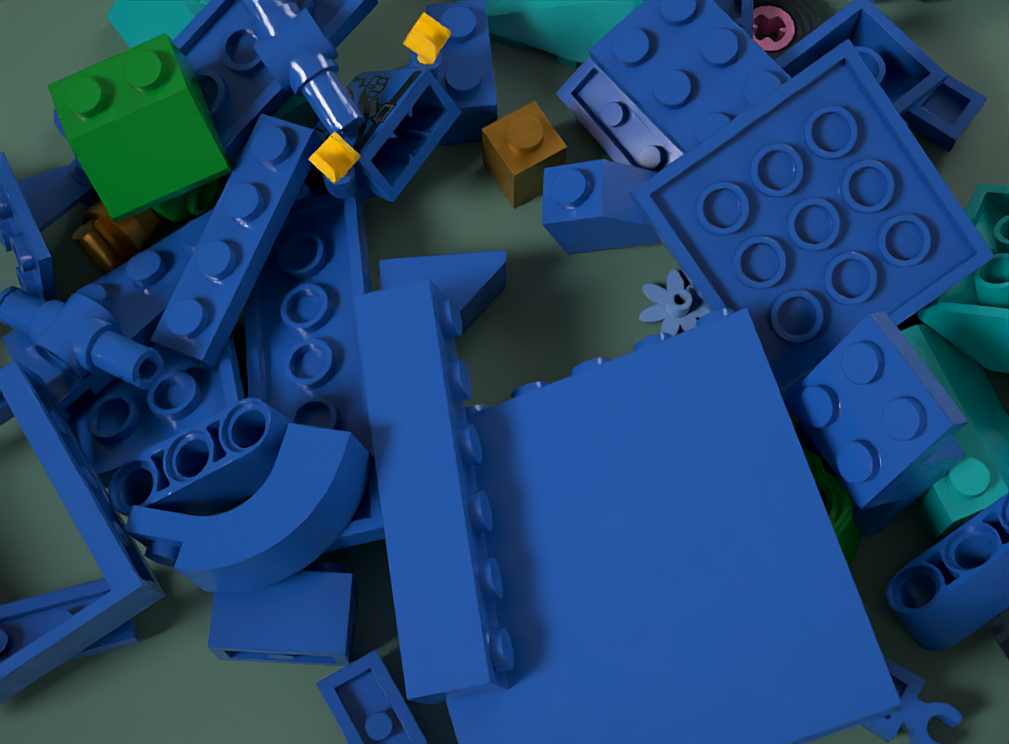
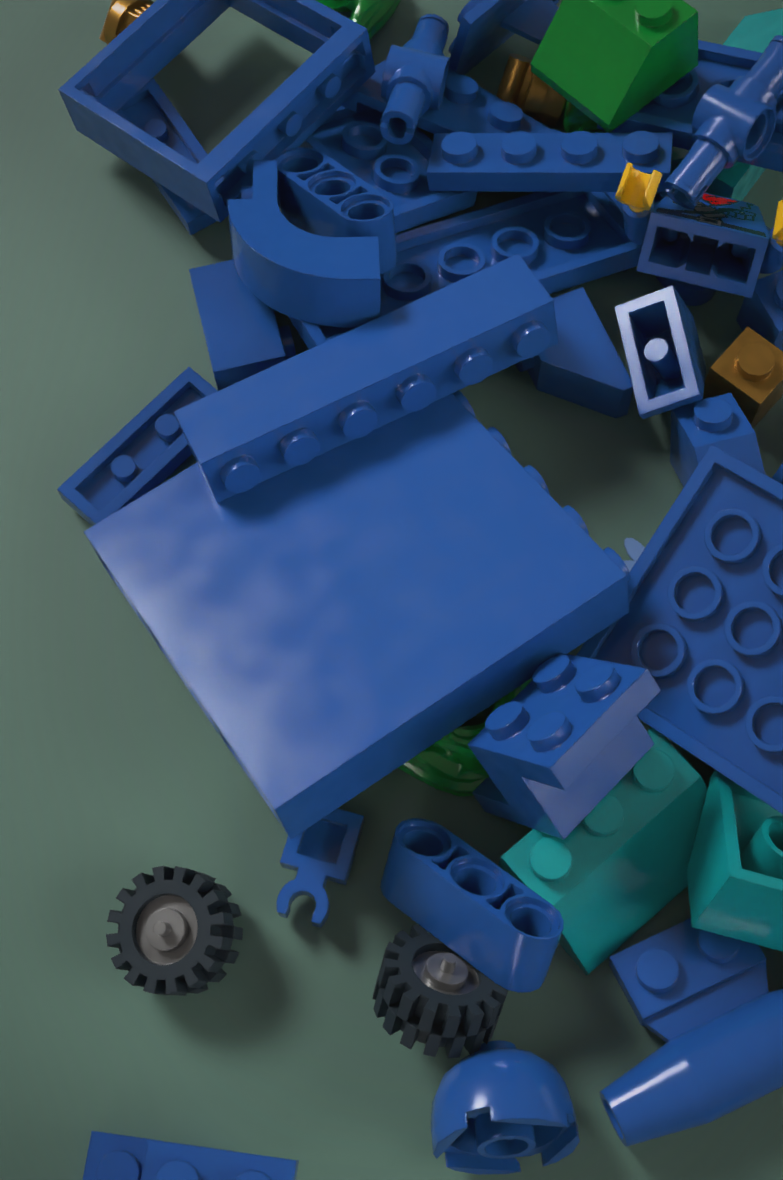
camera: 75 degrees right, 0 degrees up
(484, 214) = (661, 351): none -> blue slope

